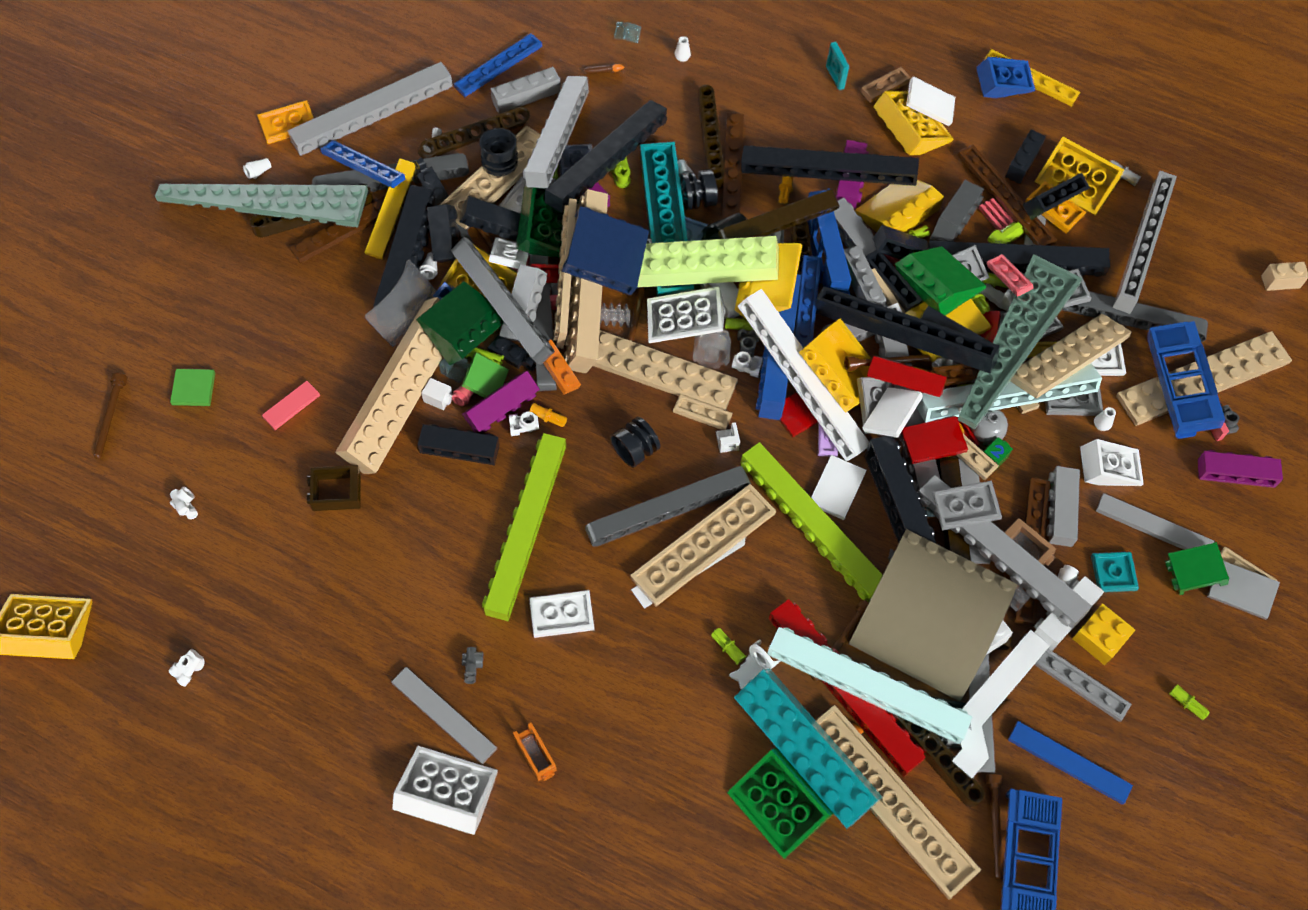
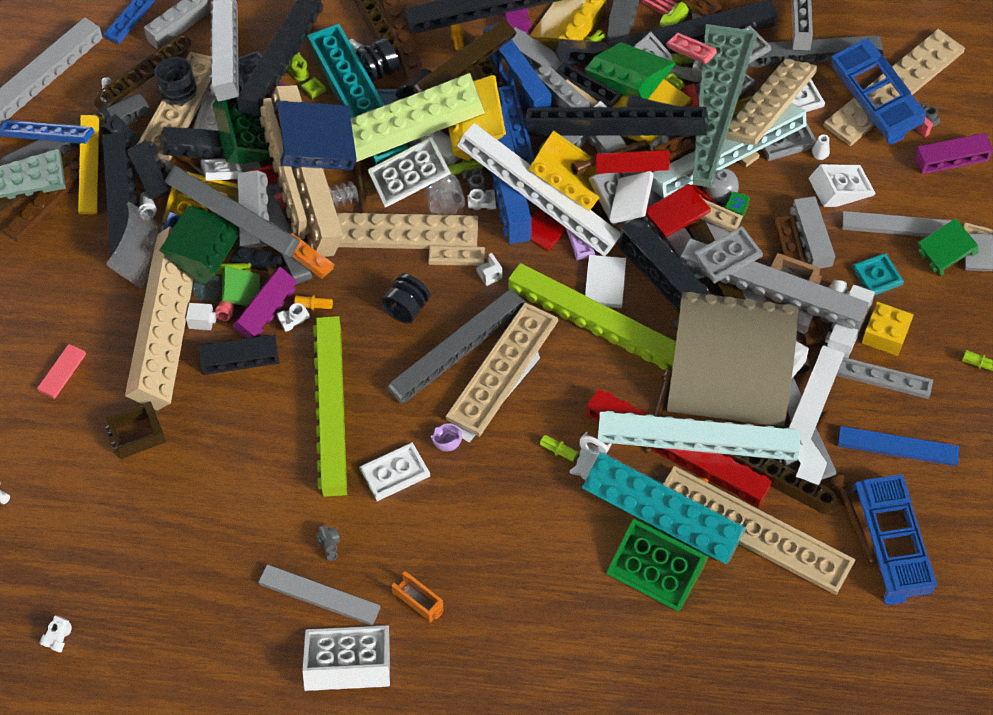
camera: 15 degrees left, 5 degrees down
(623, 597) = (447, 437): none -> lavender hair
(629, 198) = (313, 88): none -> lime tile

